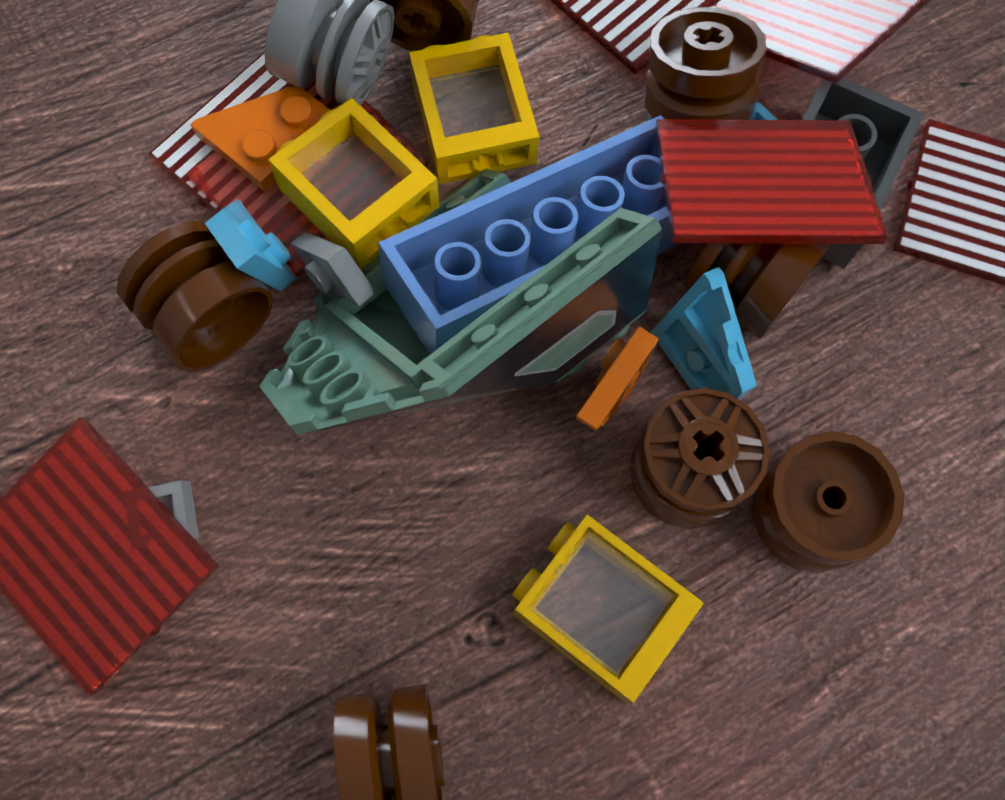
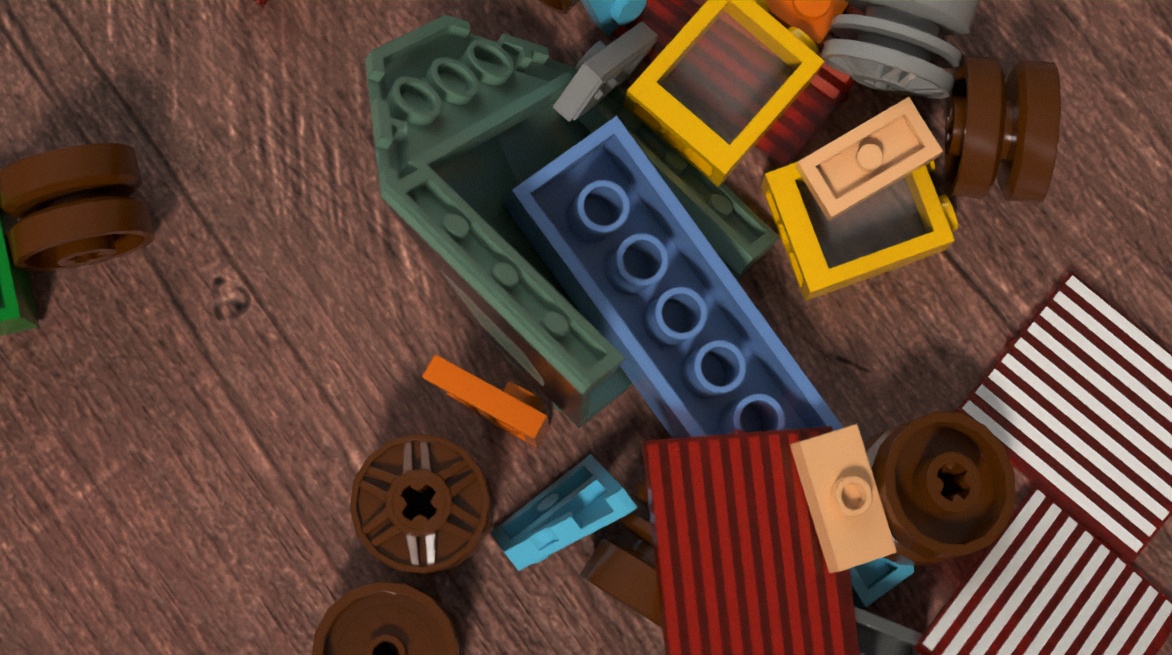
camera: 90 degrees right, 10 degrees up
(439, 72) = (868, 158): none -> light nougat plate
(605, 608) = (256, 411): window -> none
(719, 112) = (843, 498): none -> light nougat plate

